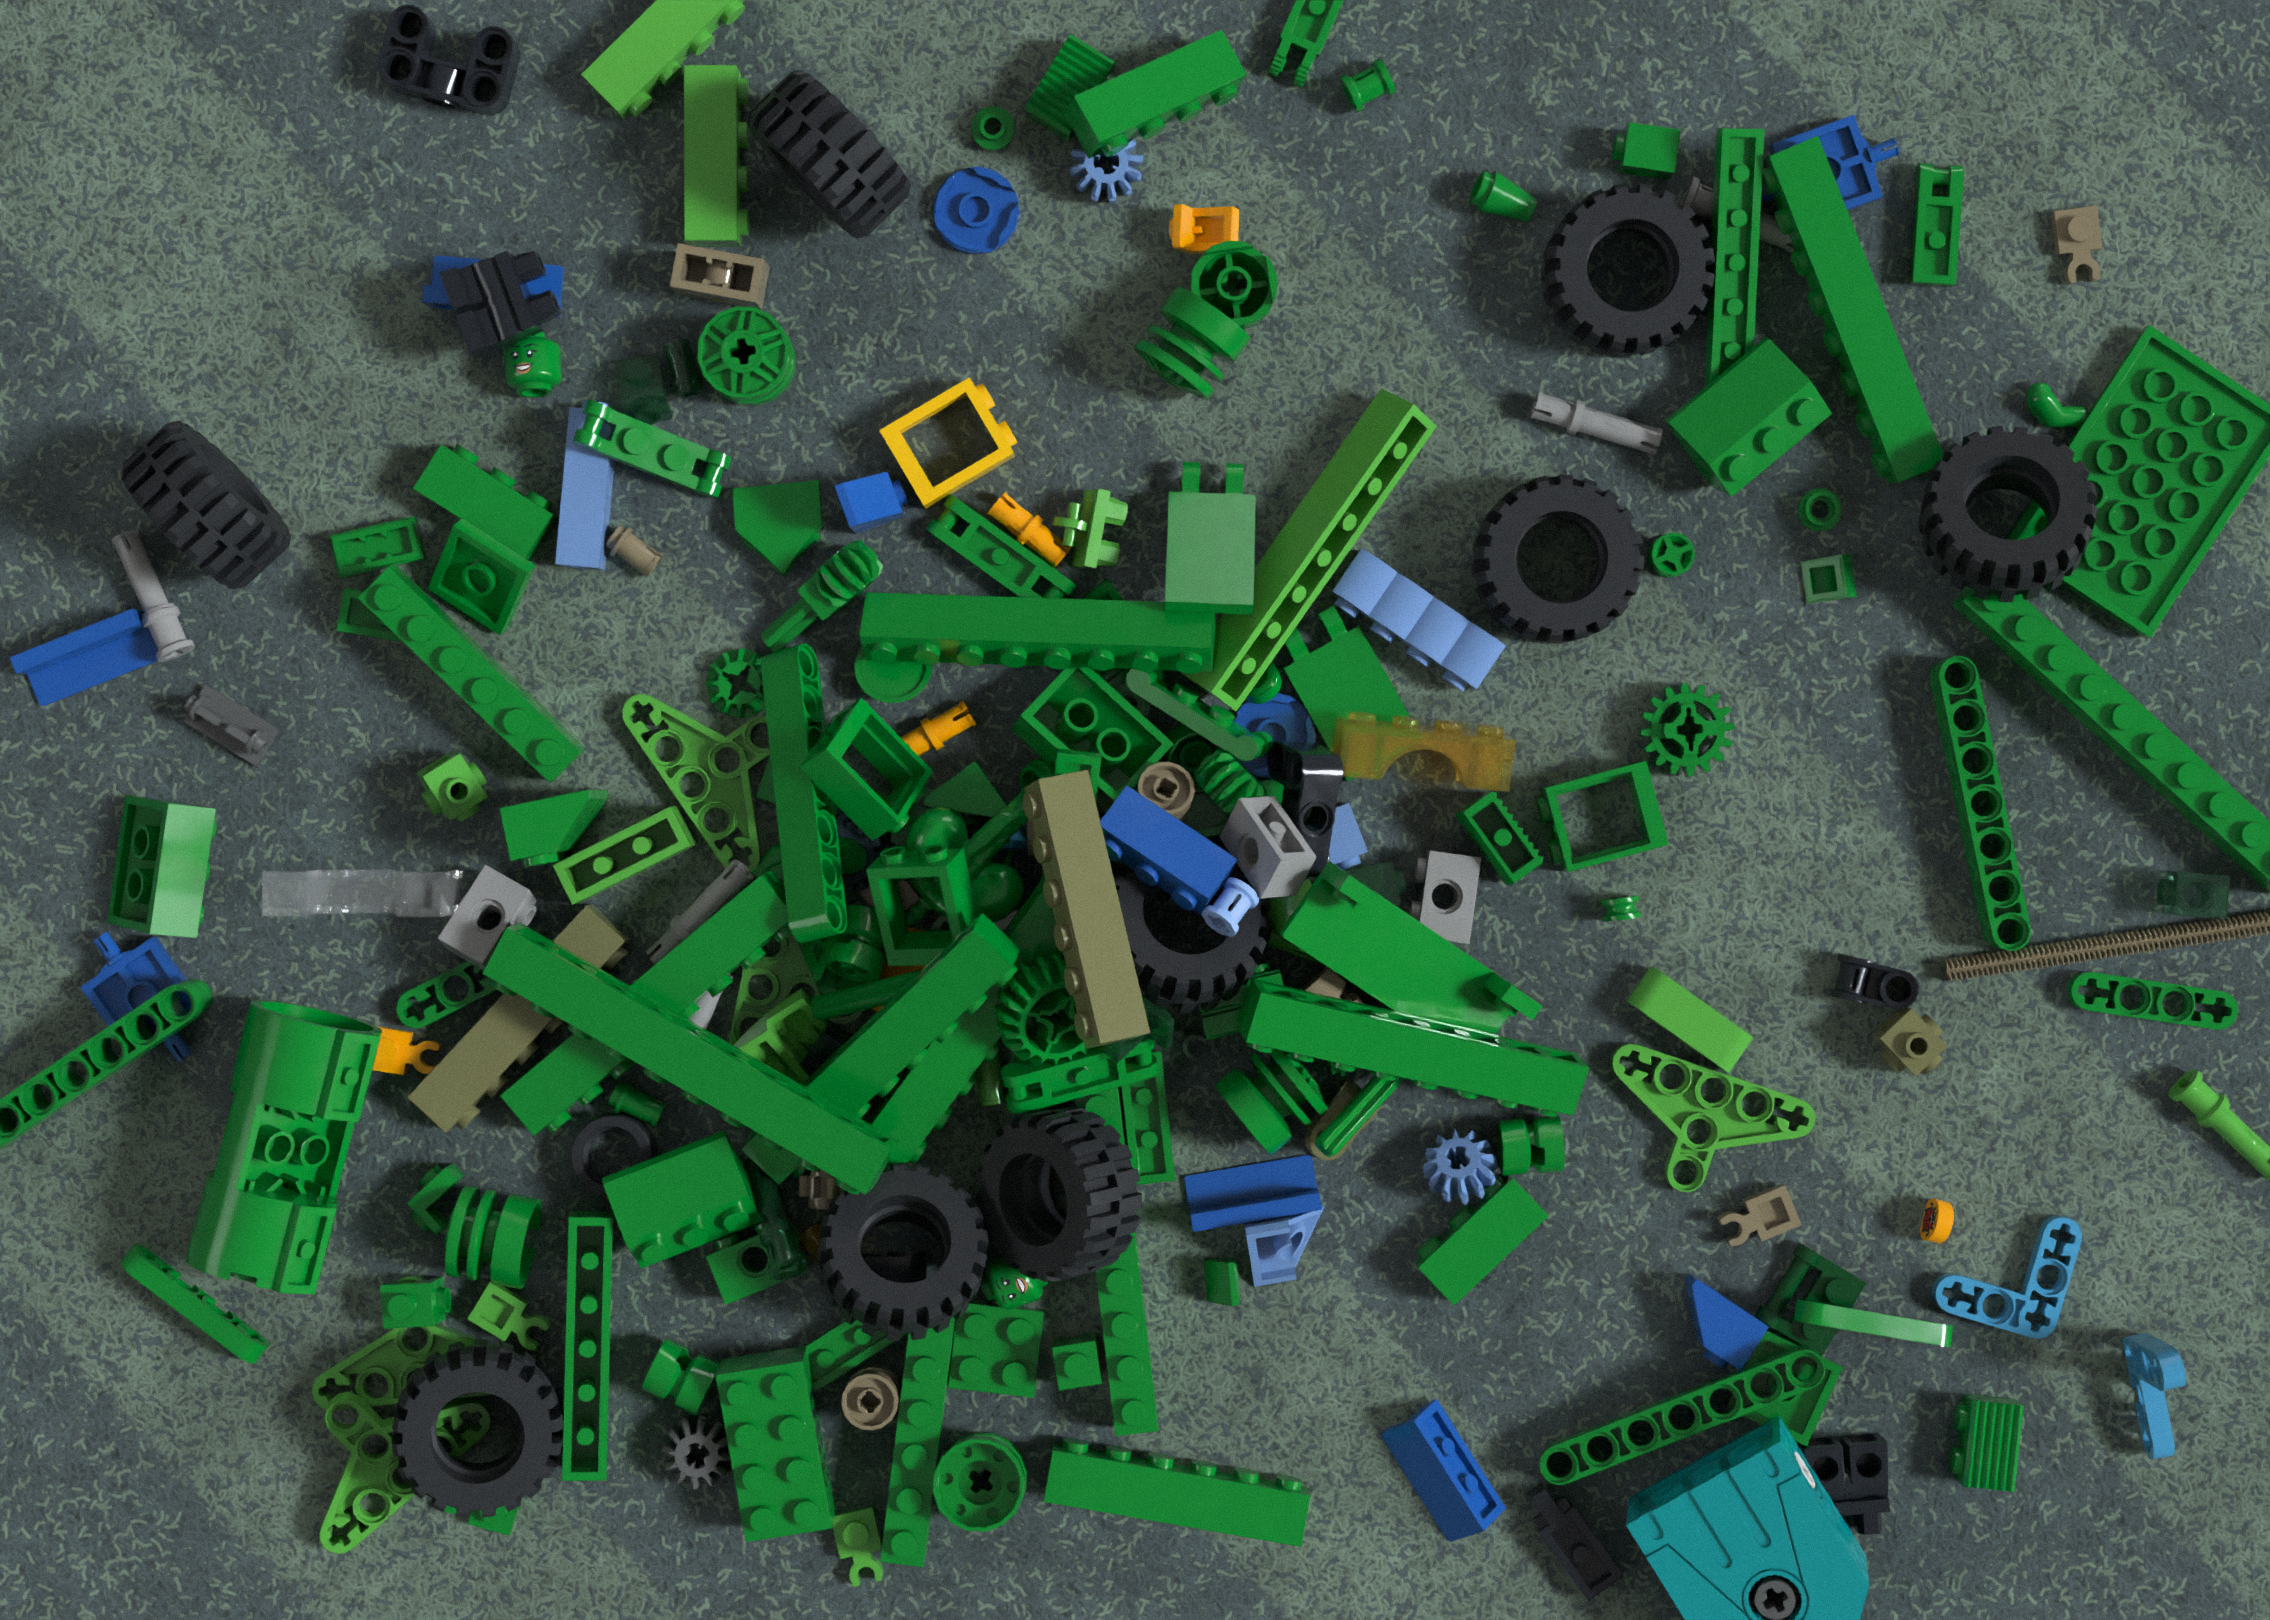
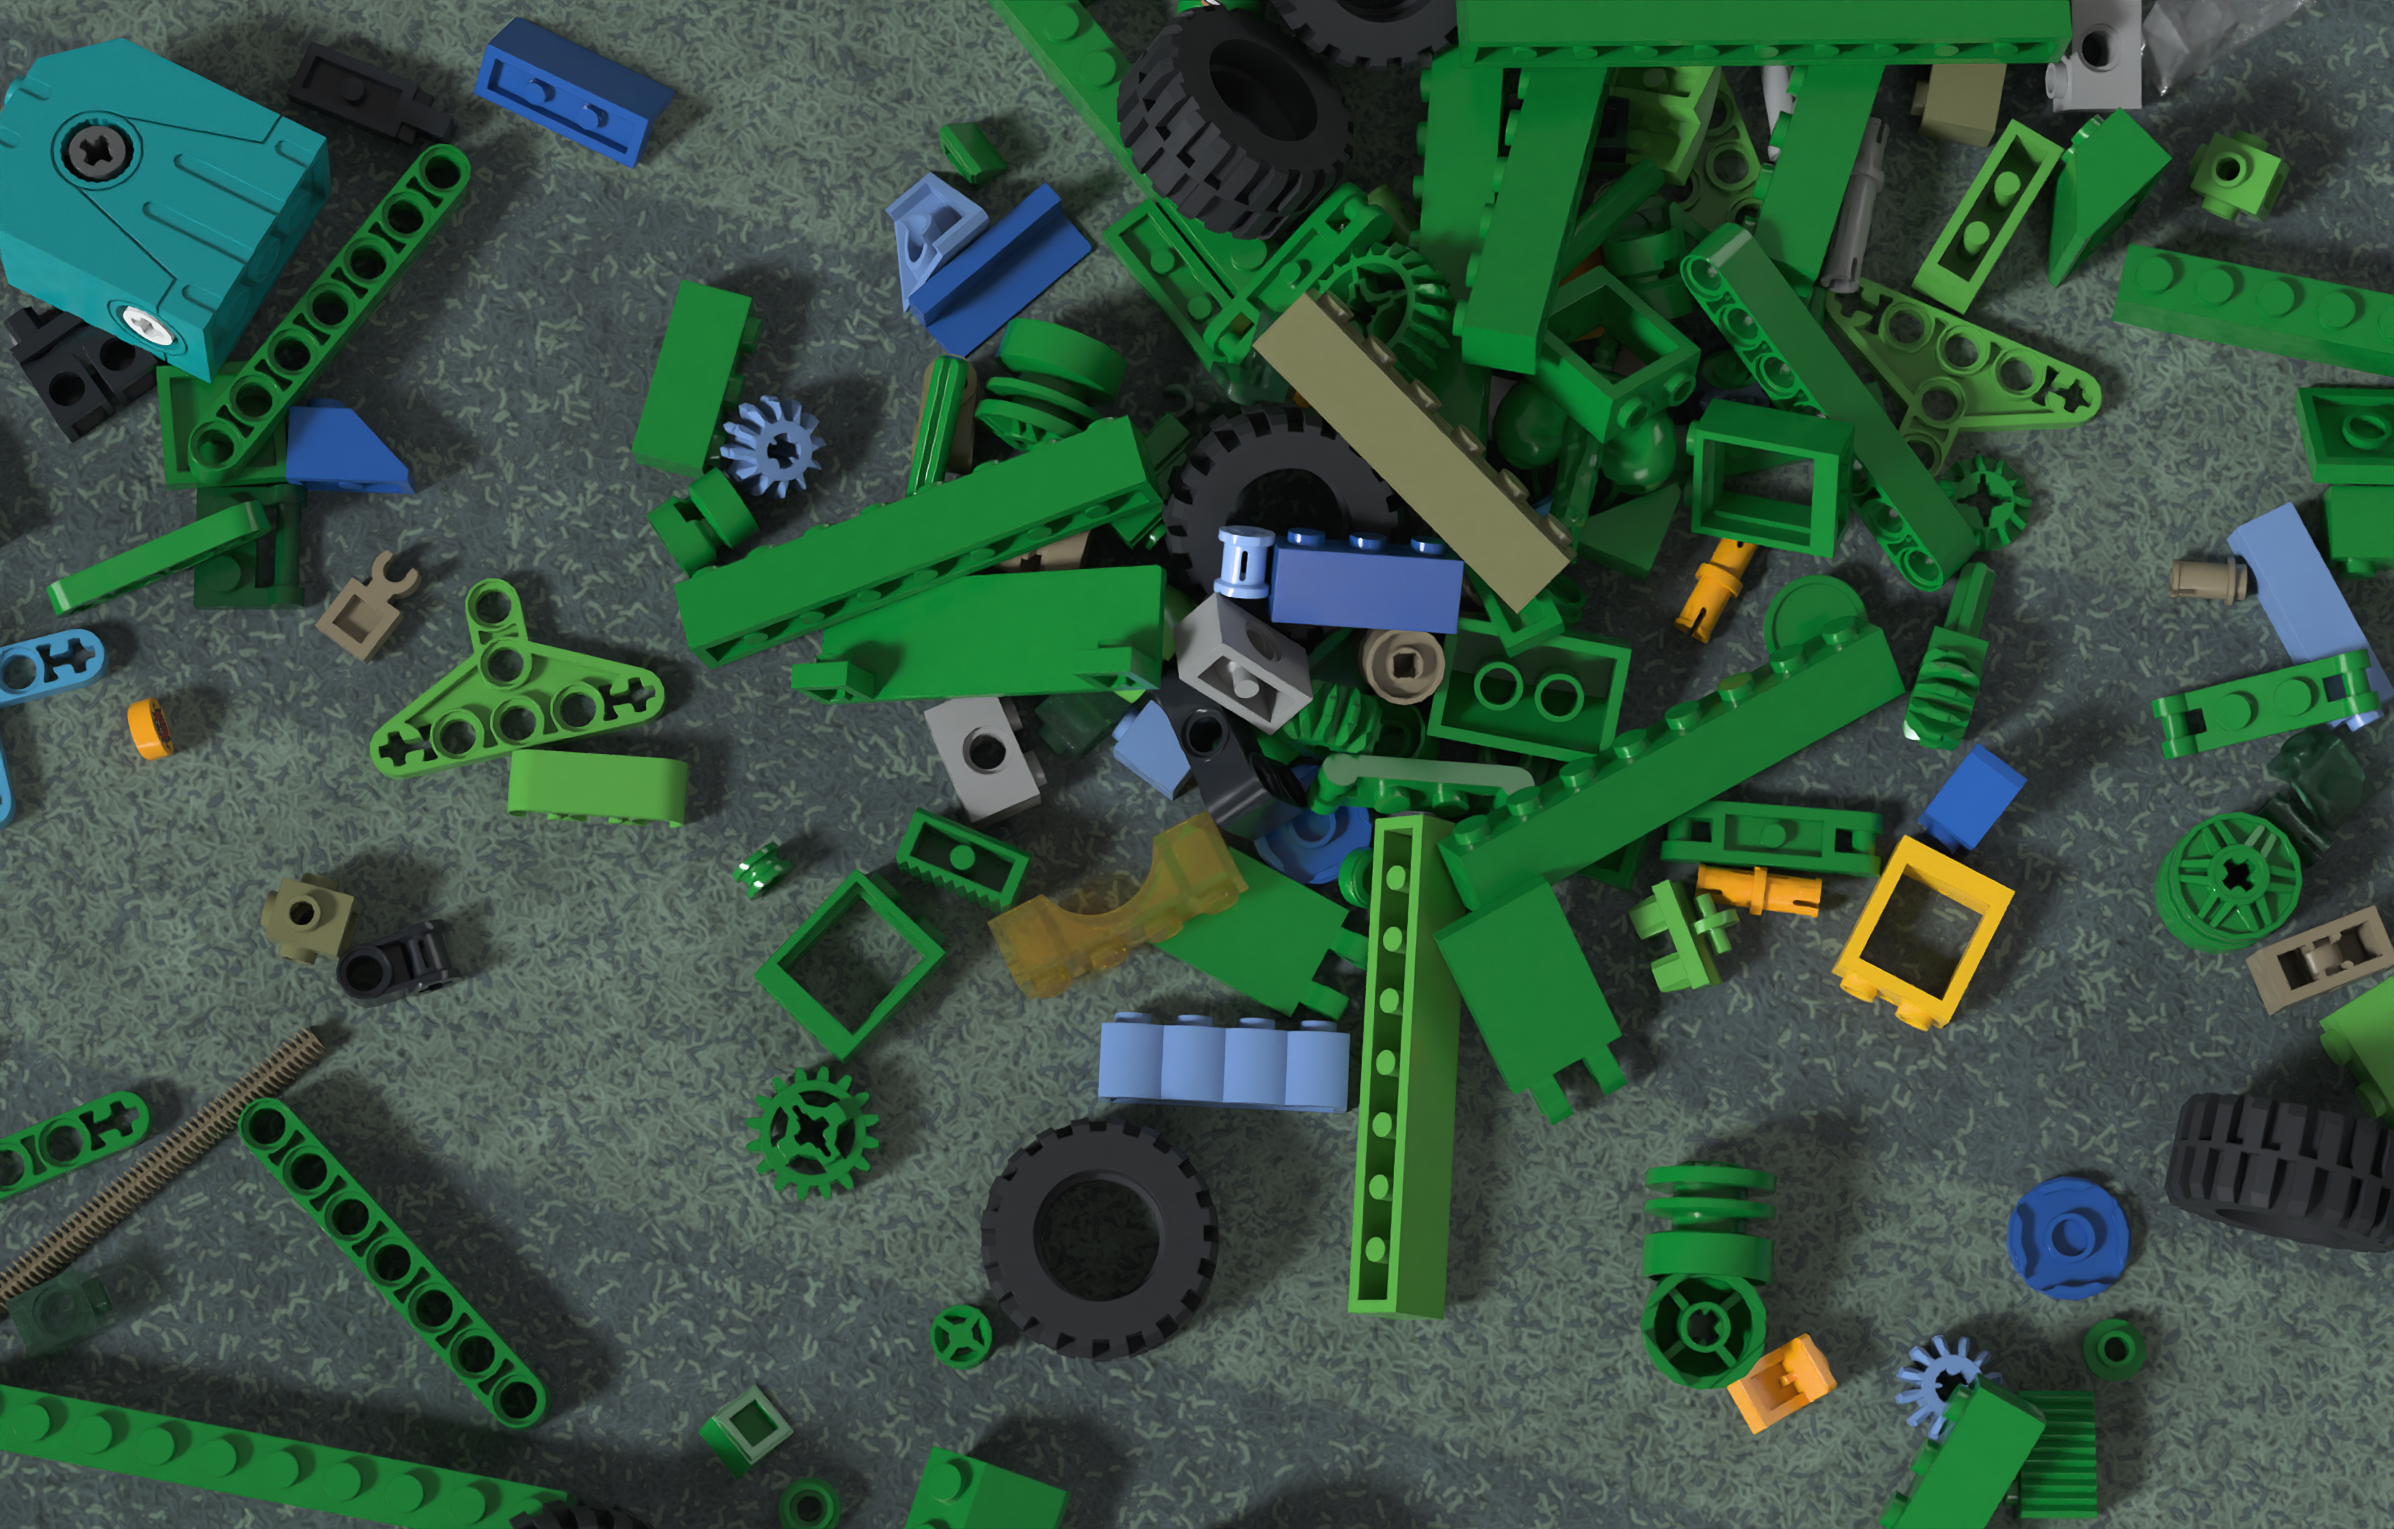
camera: 145 degrees right, 10 degrees down
(779, 520) = (2061, 720): green slope -> none
(1582, 419) = (1151, 1444): light grey pin -> none

